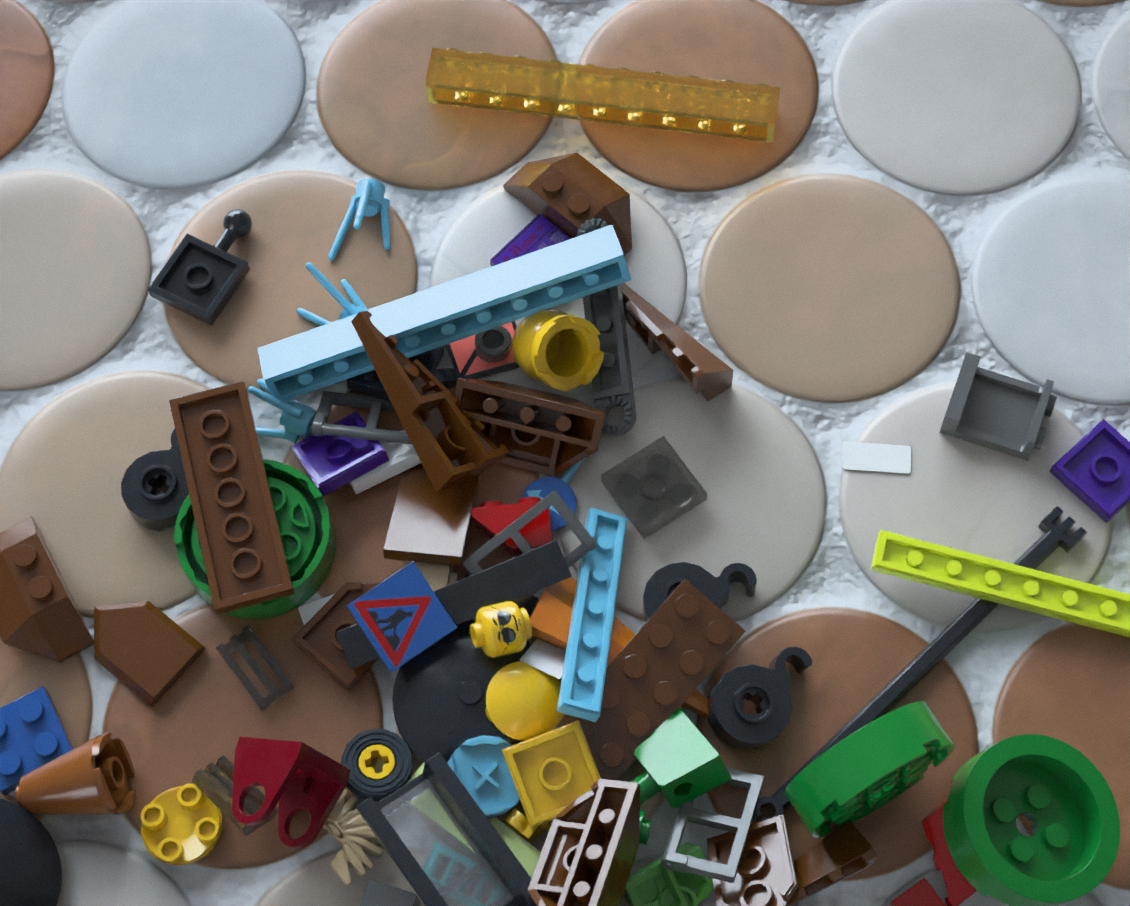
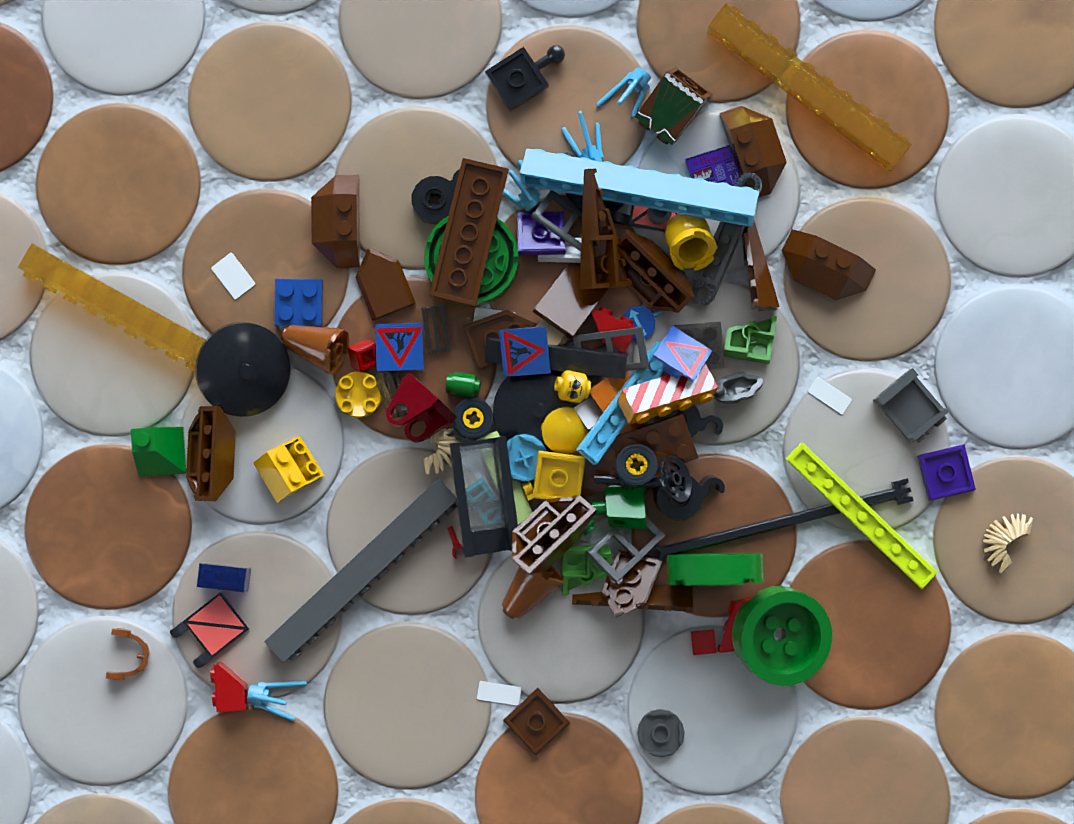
camera: 30 degrees right, 20 degrees up
(161, 763) = (362, 355): none -> red slope
(209, 719) = (399, 347): none -> blue piece
(336, 723) = (463, 385): none -> green brick
(433, 202) = (672, 106): none -> slope
(634, 500) = (681, 354): none -> piece
(645, 564) = (666, 395): none -> brick
(660, 666) = (642, 455): none -> black bush
(721, 682) = (666, 480): none -> black dish
(722, 442) = (751, 341): none -> bright green slope
(740, 513) = (737, 387): none -> dark grey arm
(763, 290) = (826, 266): none -> reddish brown wedge

